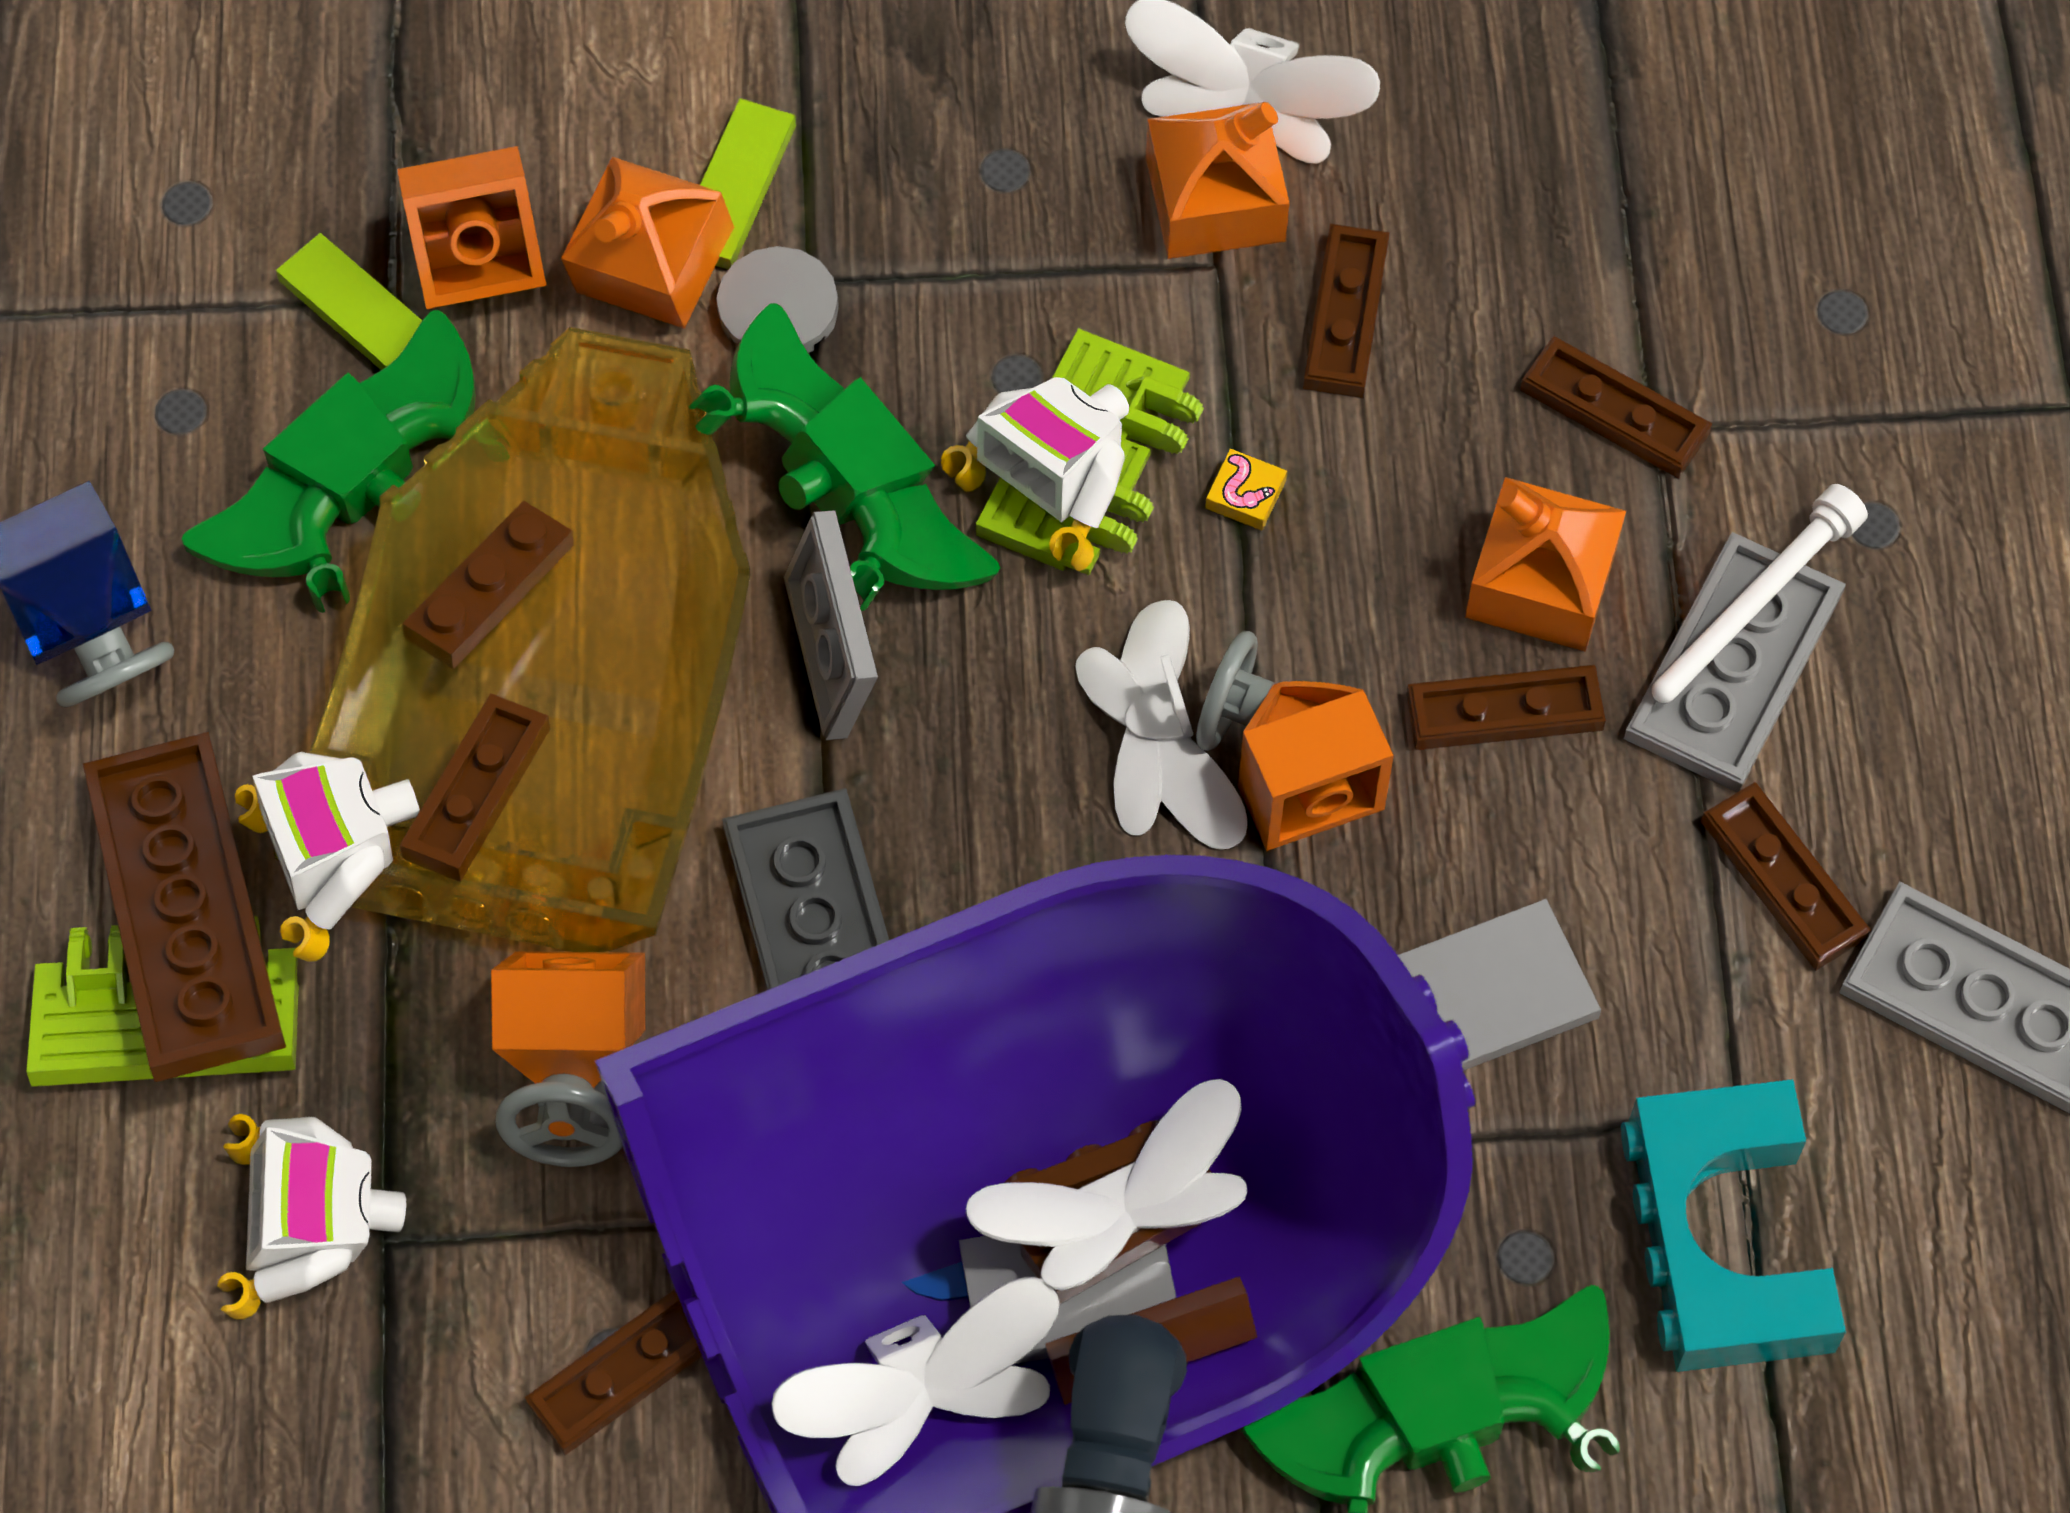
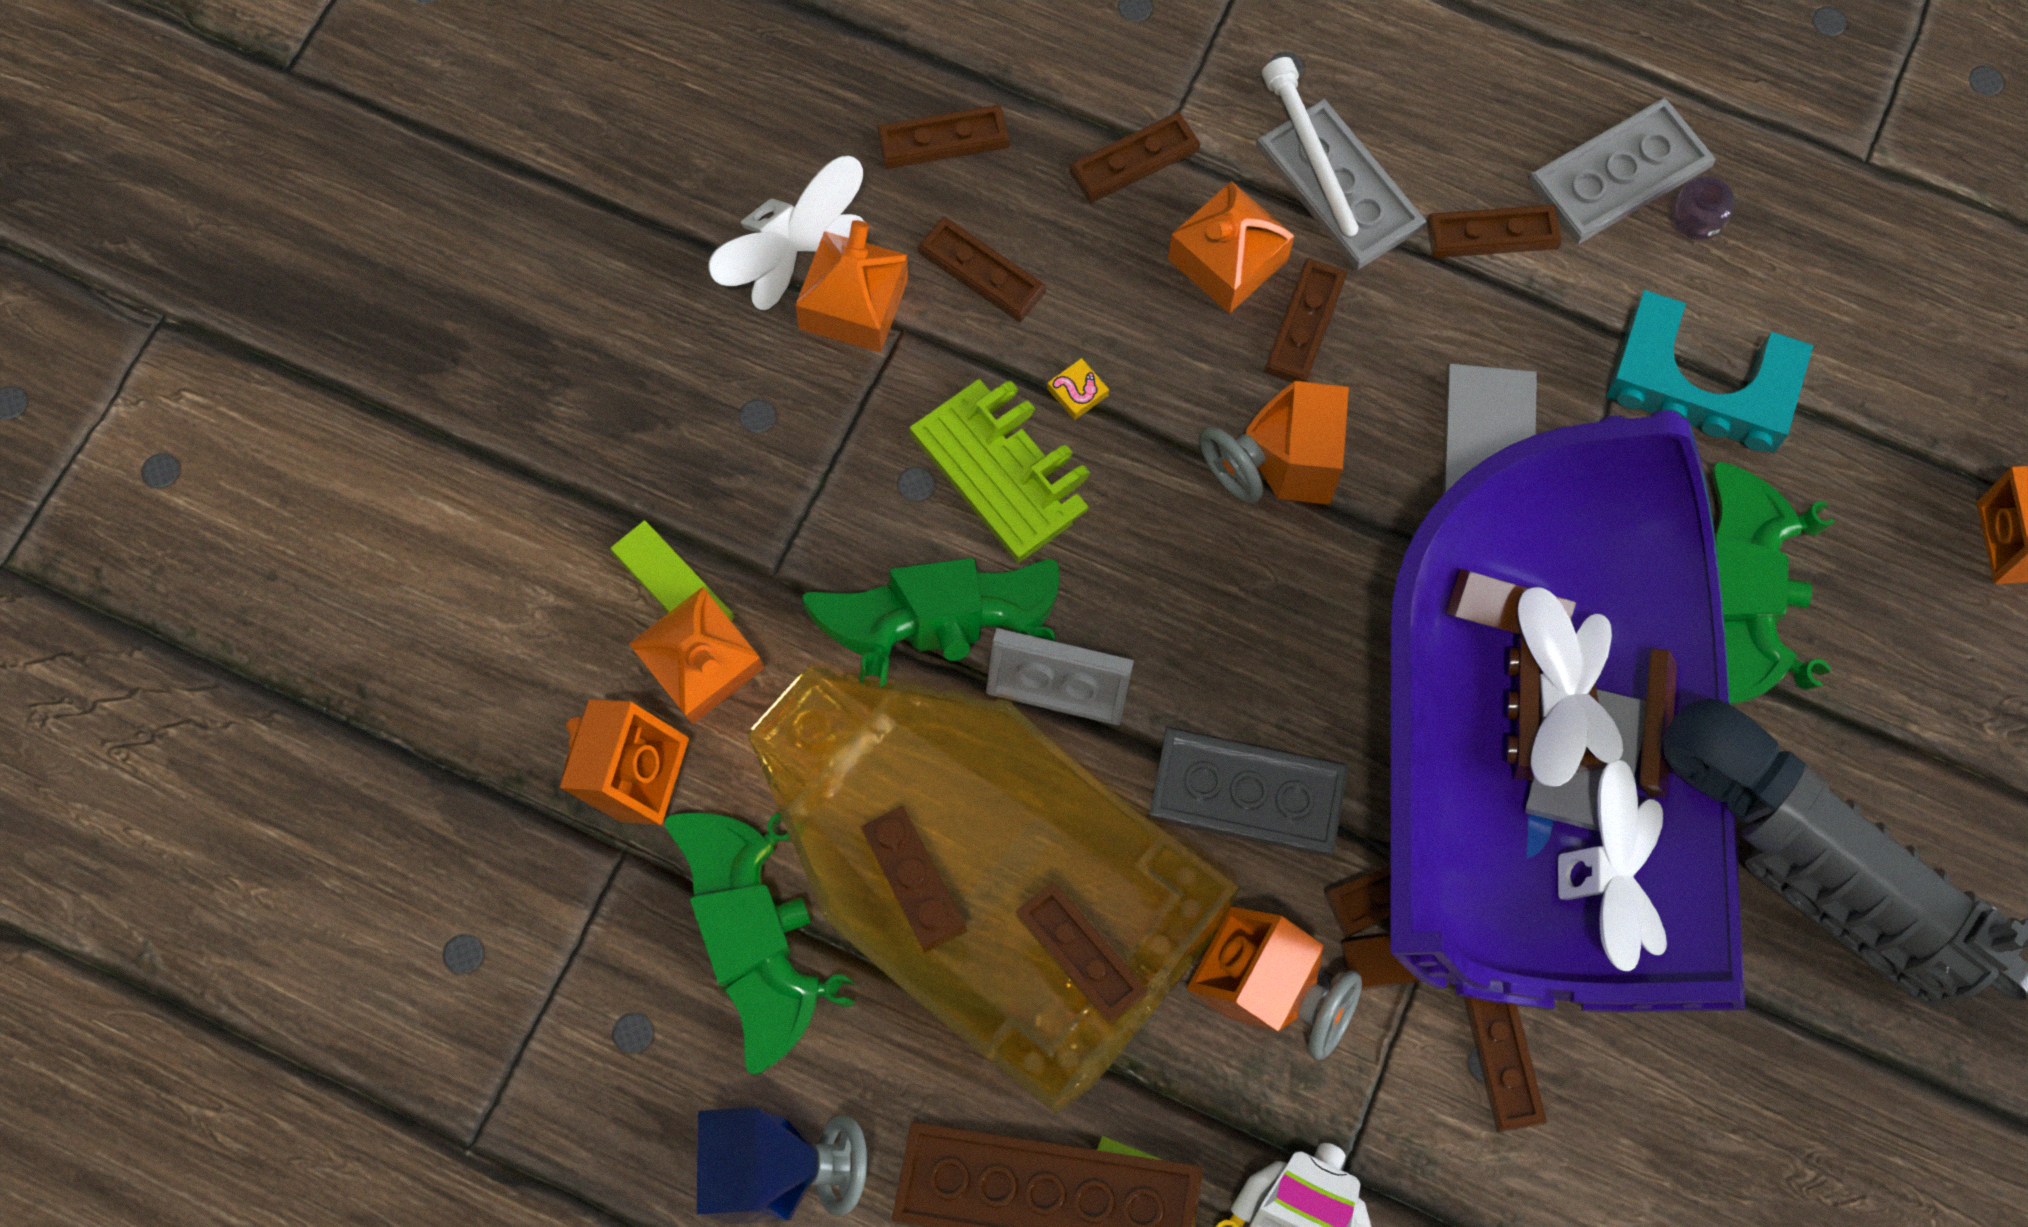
camera: 65 degrees left, 5 degrees up
(326, 836) = (1066, 1068): white torso -> none
(349, 300) = (620, 874): lime tile -> none
(784, 278) = (772, 598): light grey tile -> none
(1054, 450) = (1006, 479): white torso -> none
(1157, 750) = (1240, 529): white piece -> none
(1195, 1050) = (1491, 601): none -> tile
(1504, 184) = (943, 136): none -> reddish brown tile
(1978, 1112) = (1703, 208): none -> clear purple head

